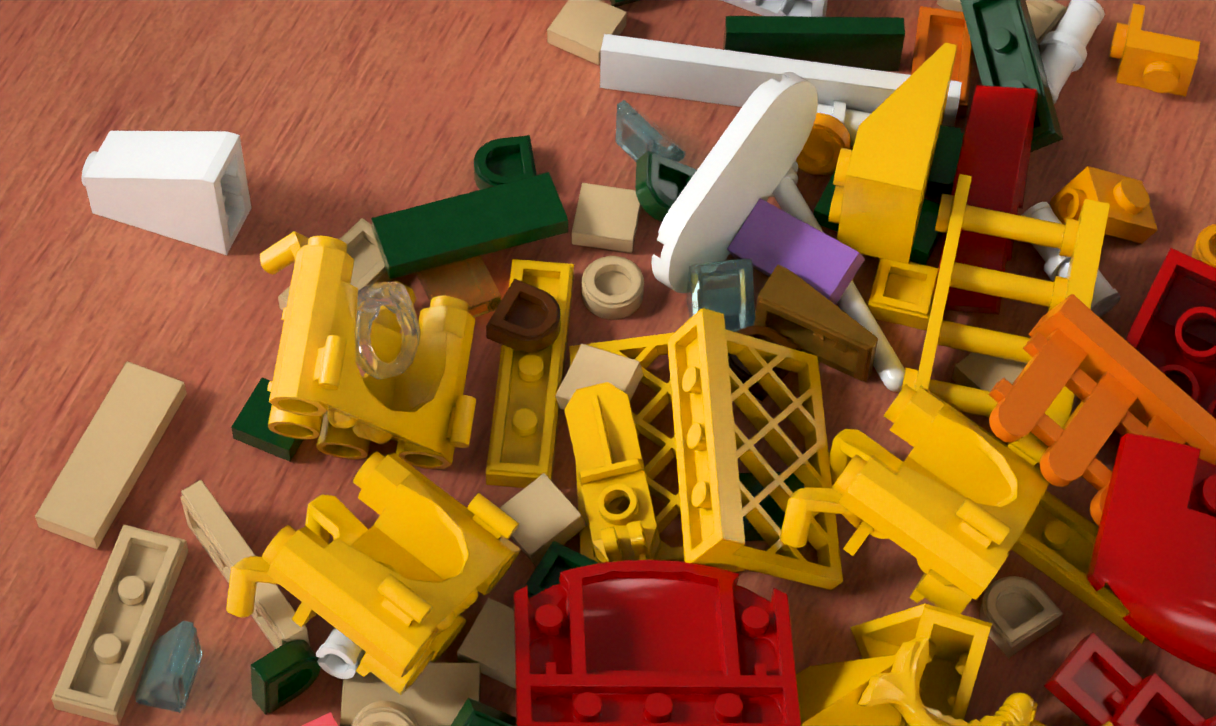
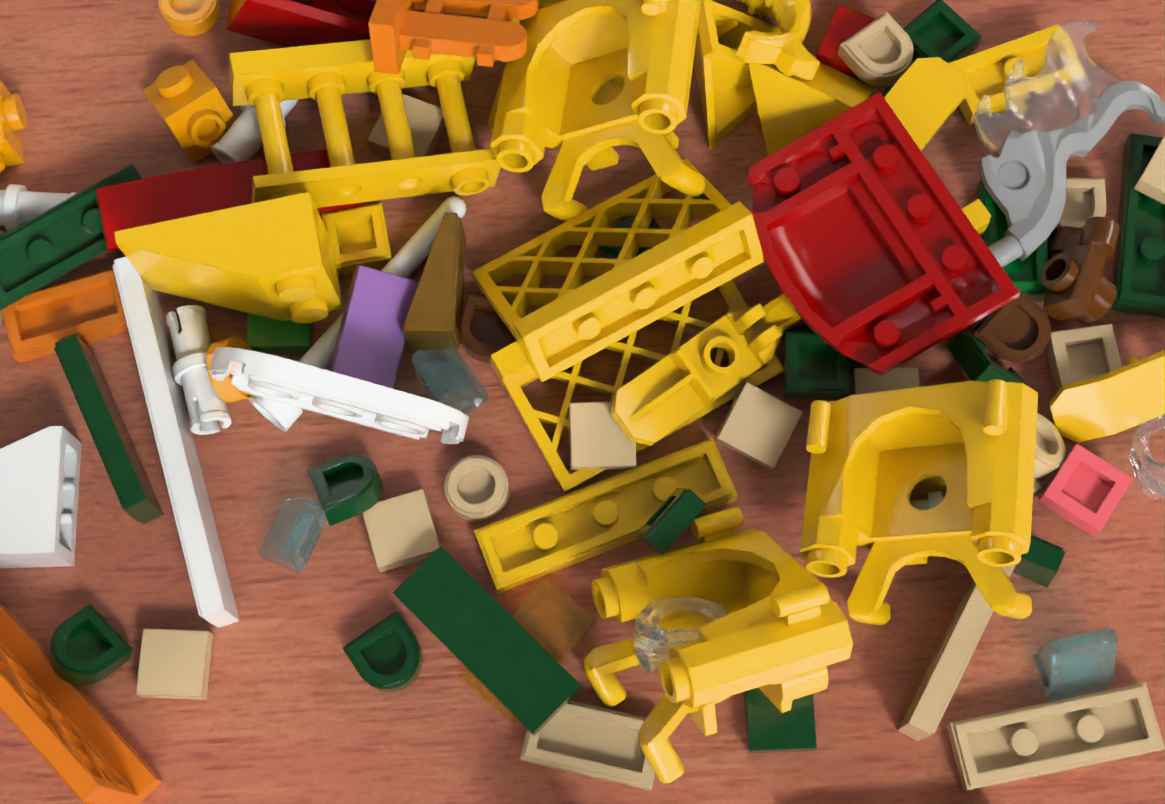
camera: 110 degrees left, 15 degrees up
(487, 390) = (671, 519): none -> dark green tile
(525, 319) = (564, 535): reddish brown tile -> none

